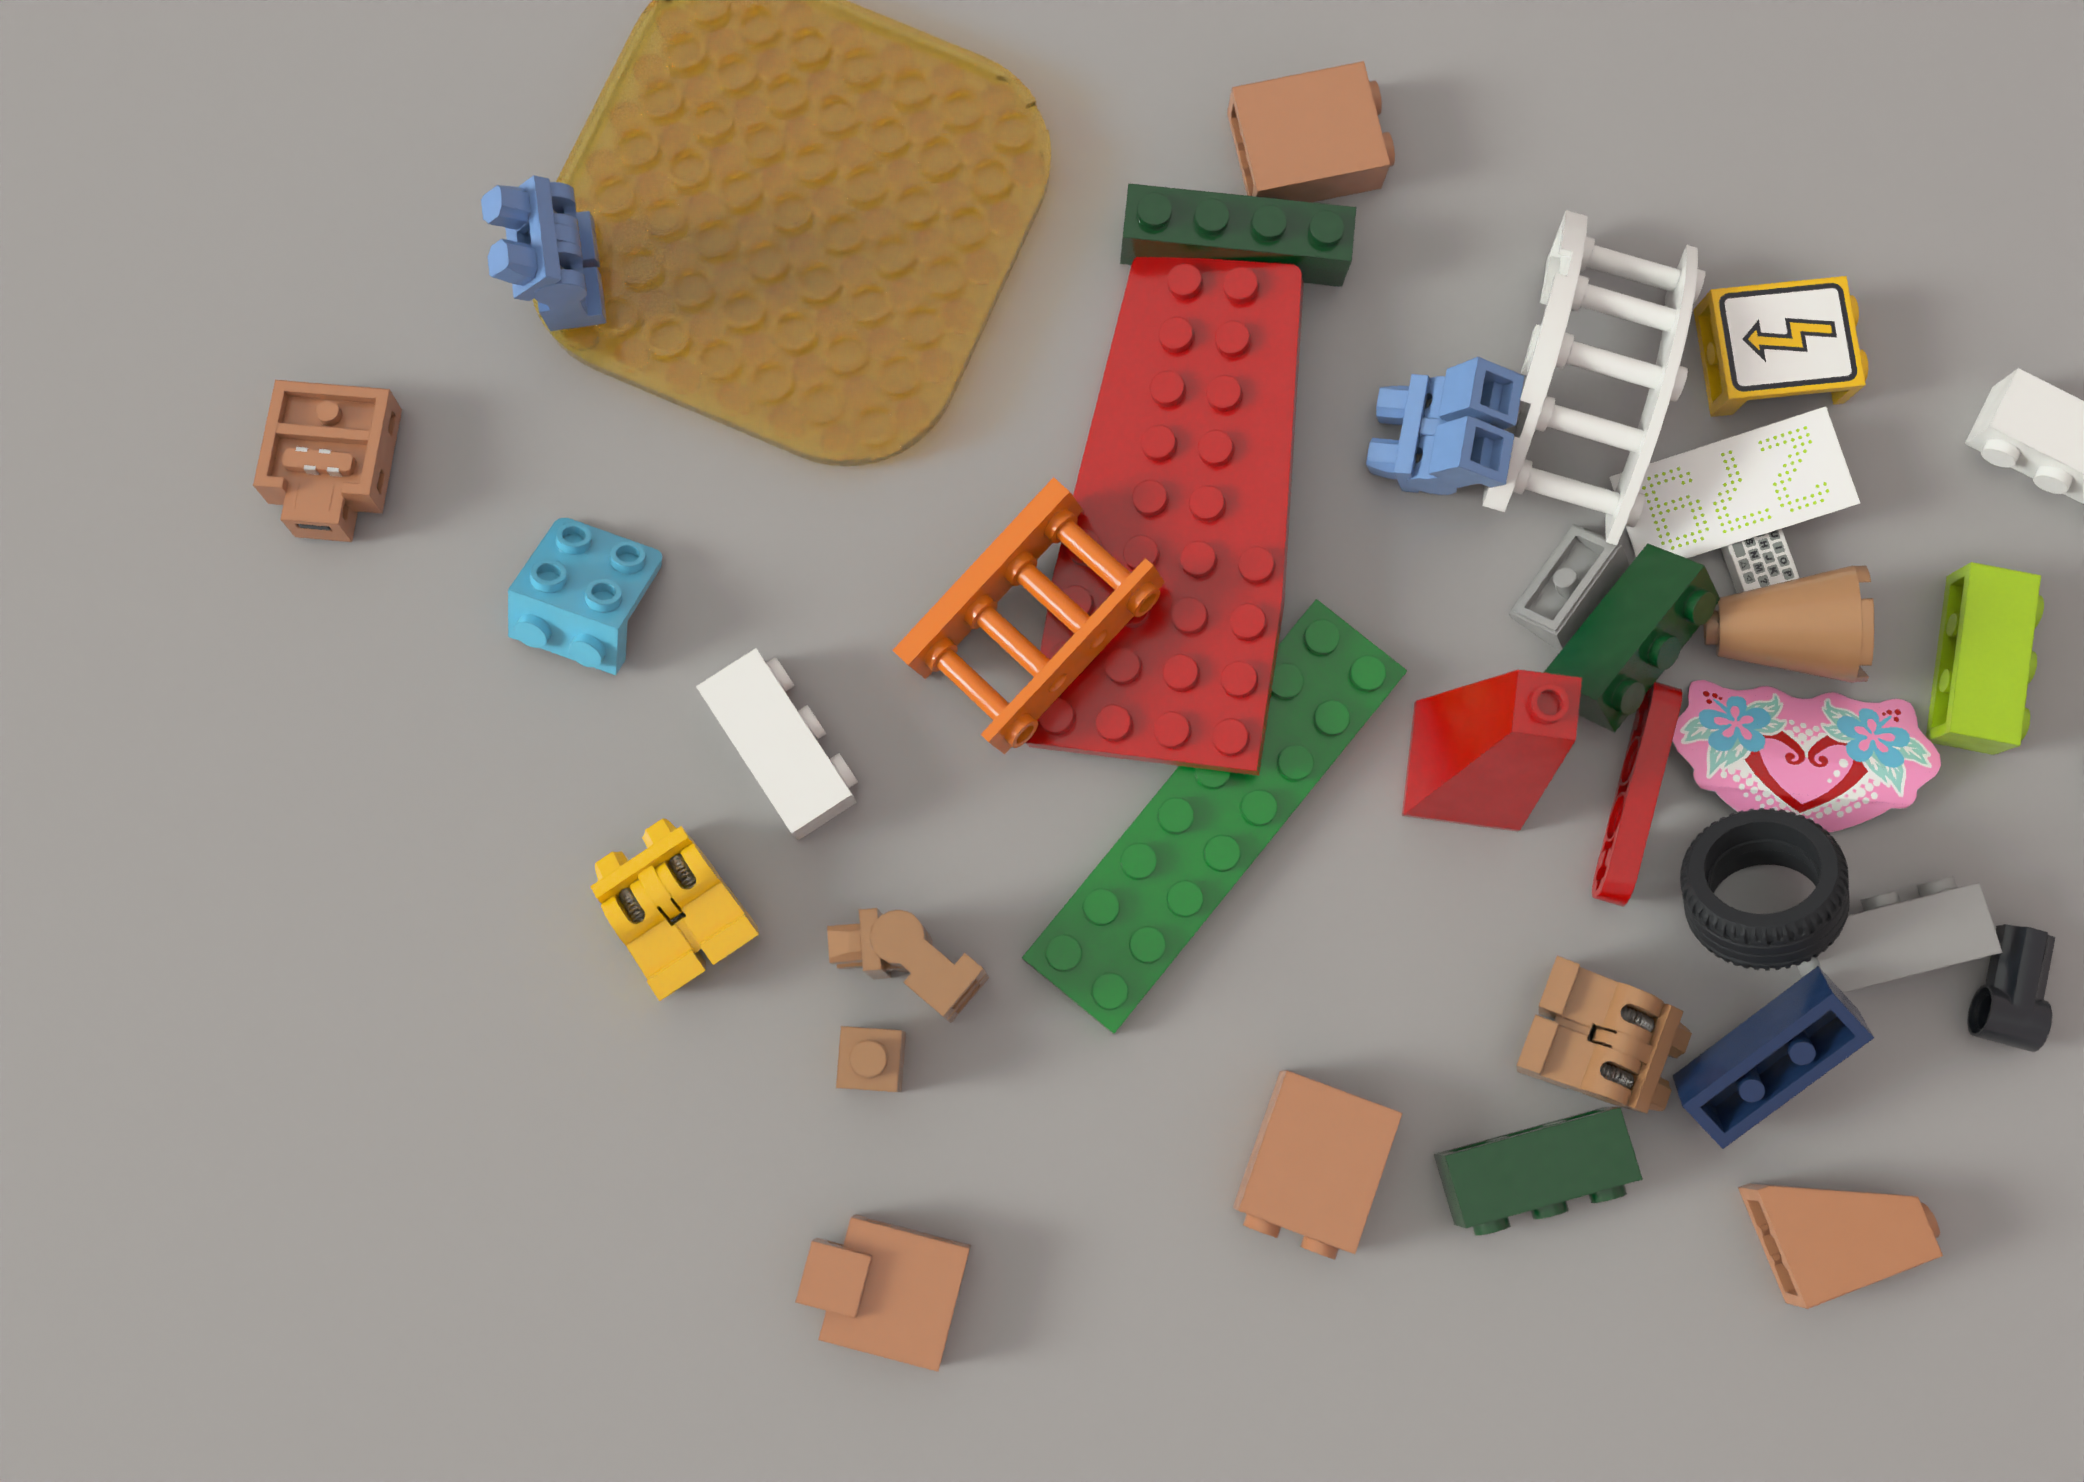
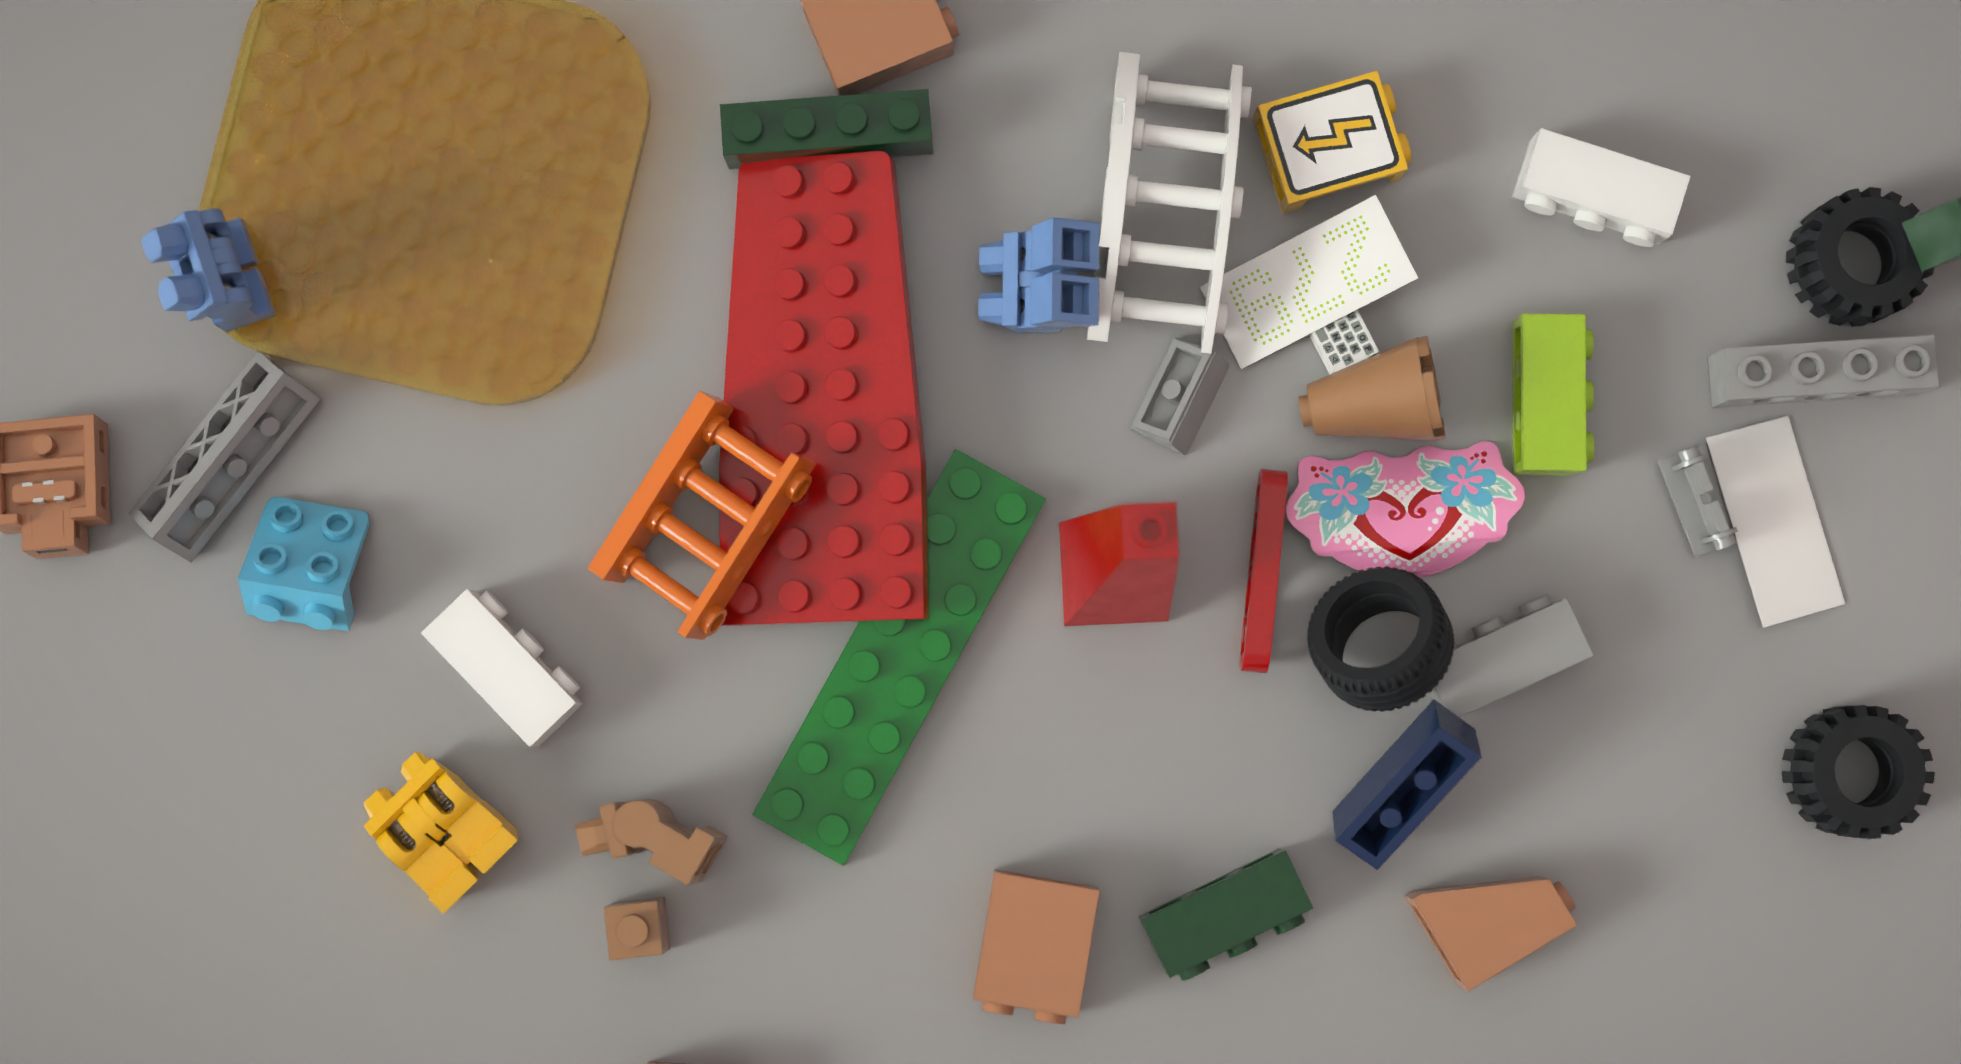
camera: 10 degrees left, 5 degrees up
(523, 465) = (226, 460): none -> light grey fence
(1628, 1044) = (1284, 795): medium nougat hips -> none
(1636, 633) = (1236, 434): dark green brick -> none
(2012, 1001) = (1613, 696): black piece -> none

